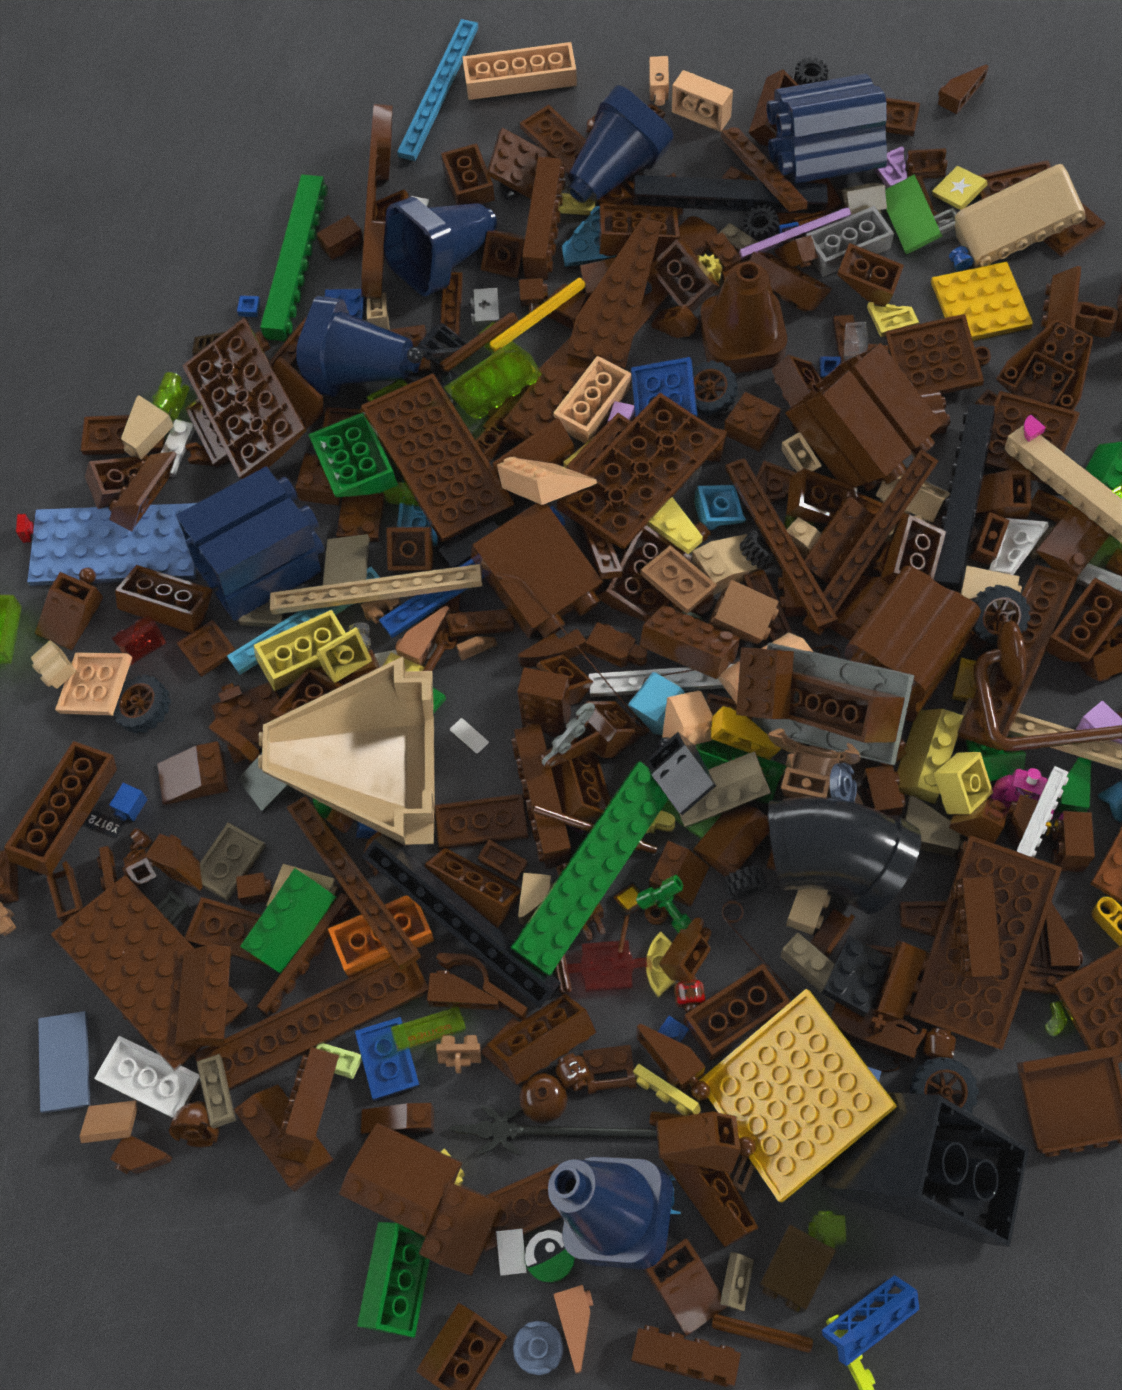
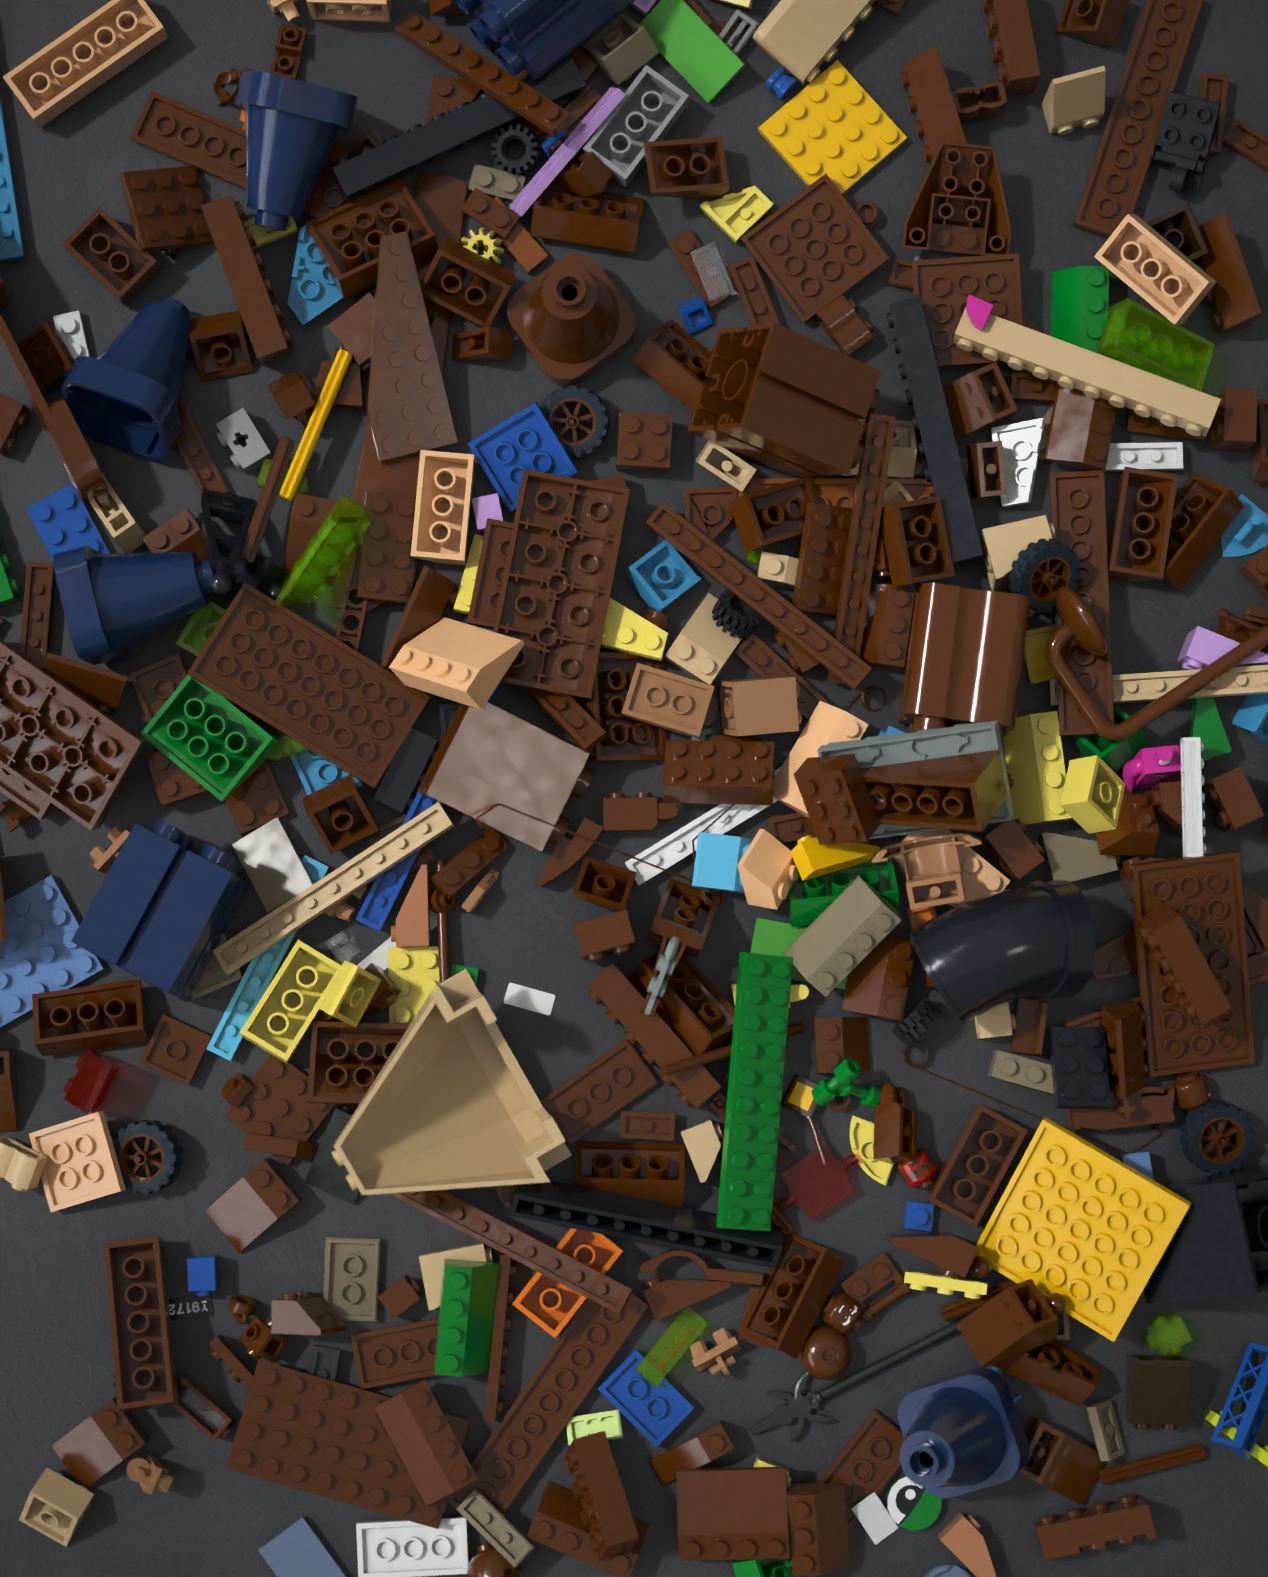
camera: 35 degrees left, 20 degrees up
(680, 772) = (793, 942): slope -> none
(841, 782) = (973, 871): sand blue tile -> none

